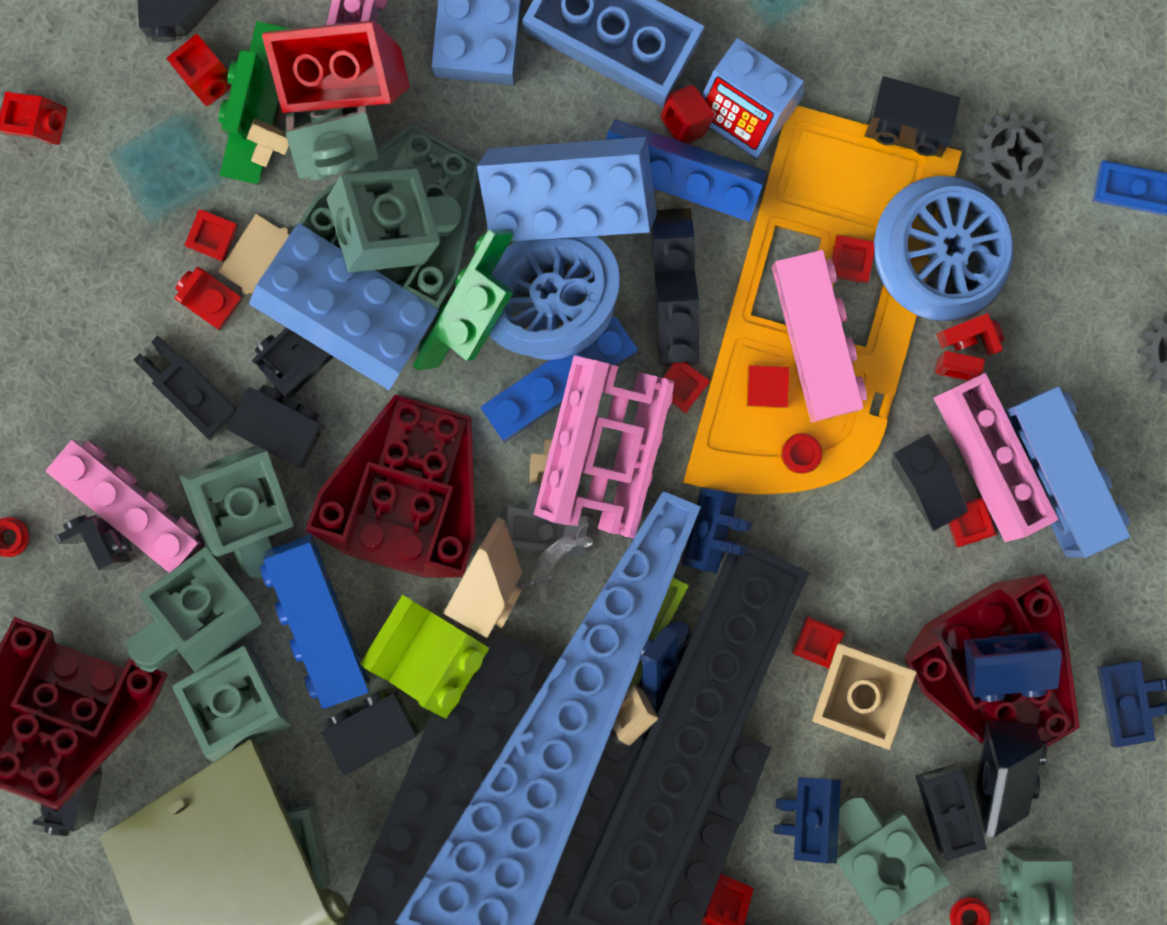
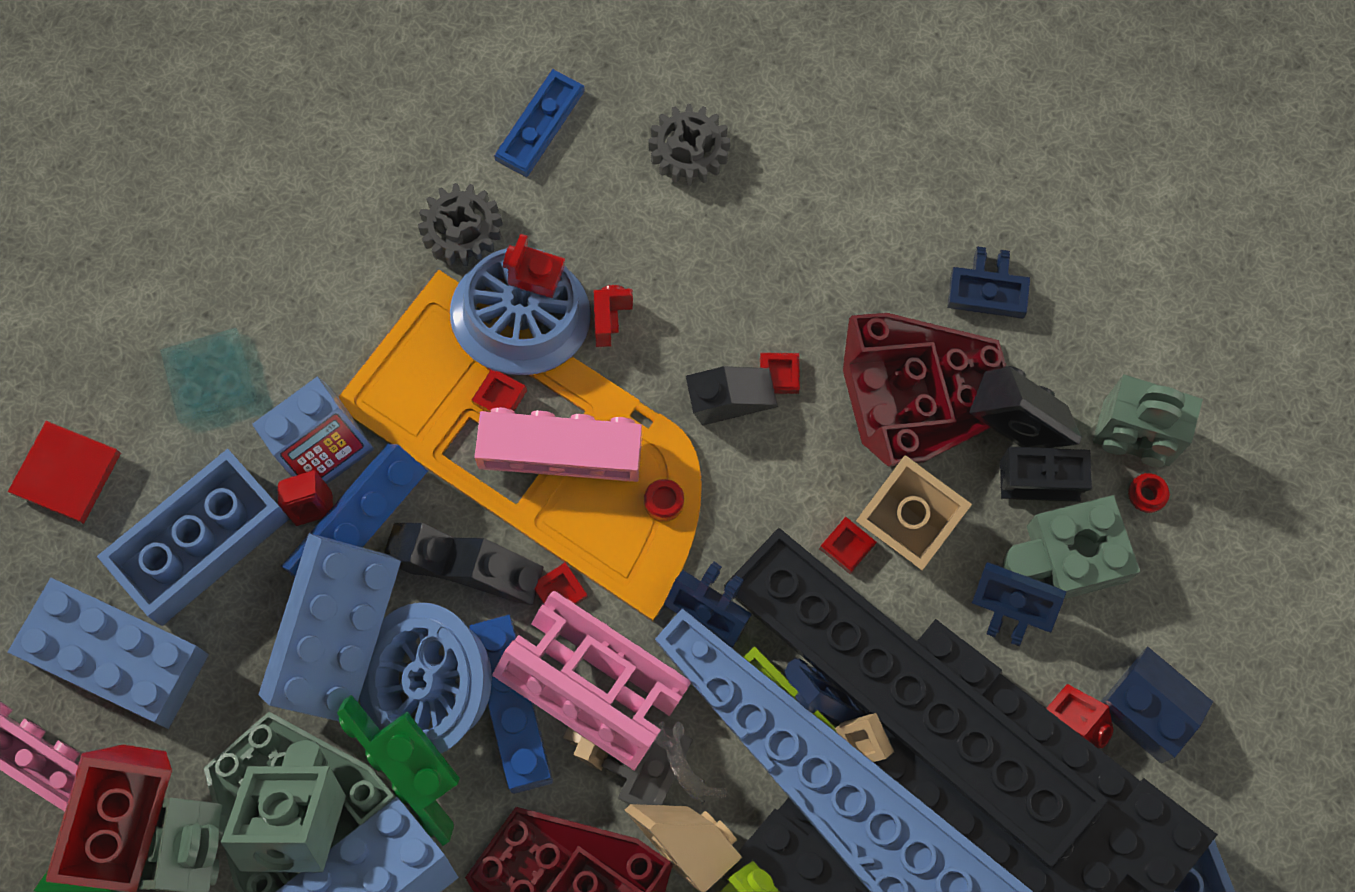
camera: 70 degrees left, 15 degrees down
(767, 387) = (590, 509): red tile -> none
(912, 117) = (390, 298): black hinge -> none
(959, 366) = (633, 333): red tile -> none
(987, 246) = (532, 268): none -> red bracket
(995, 458) = (729, 327): bright pink brick -> none
(1012, 665) = (925, 369): dark blue slope -> none
(1068, 474) = (763, 272): medium blue brick -> none

